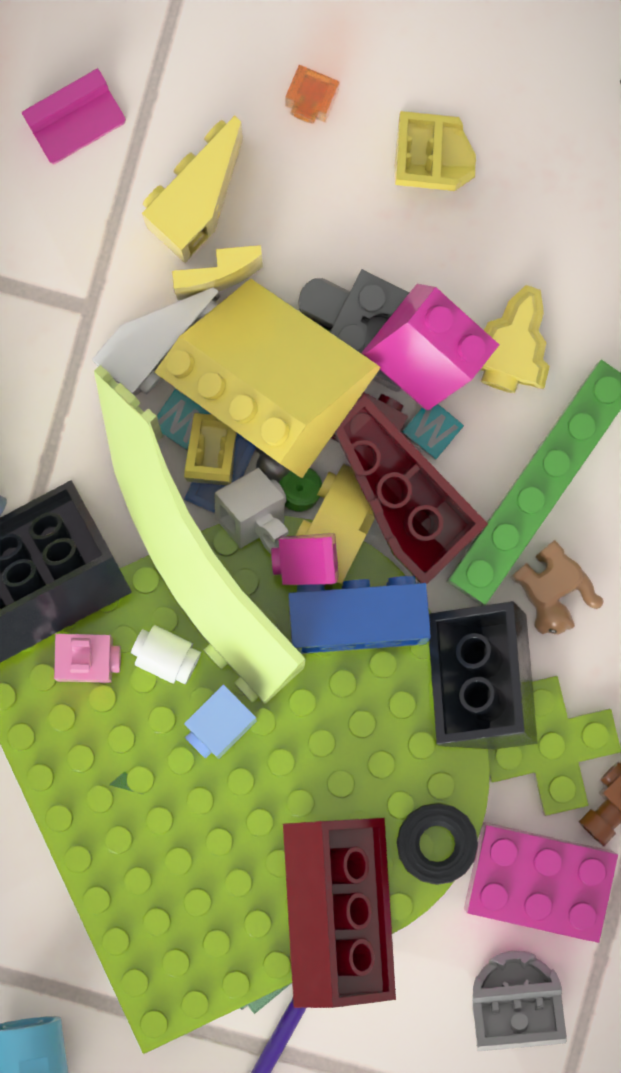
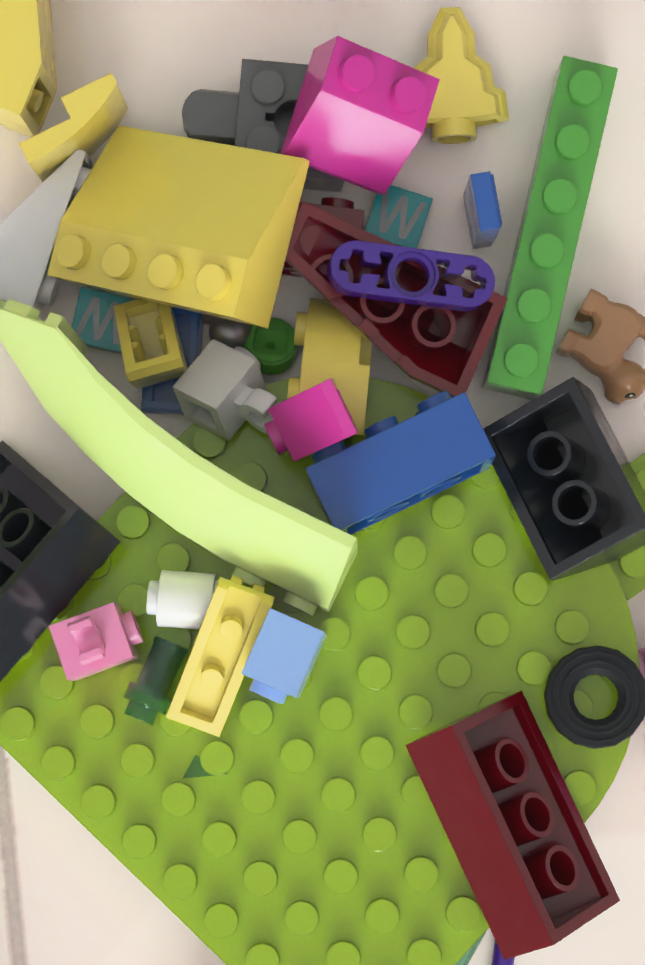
camera: 10 degrees left, 0 degrees up
(110, 711) = (154, 682): none -> clear green animal
(172, 705) = (219, 655): none -> light yellow hinge
(456, 486) = (370, 257): none -> dark purple beam
(495, 450) = (482, 209): none -> blue tile

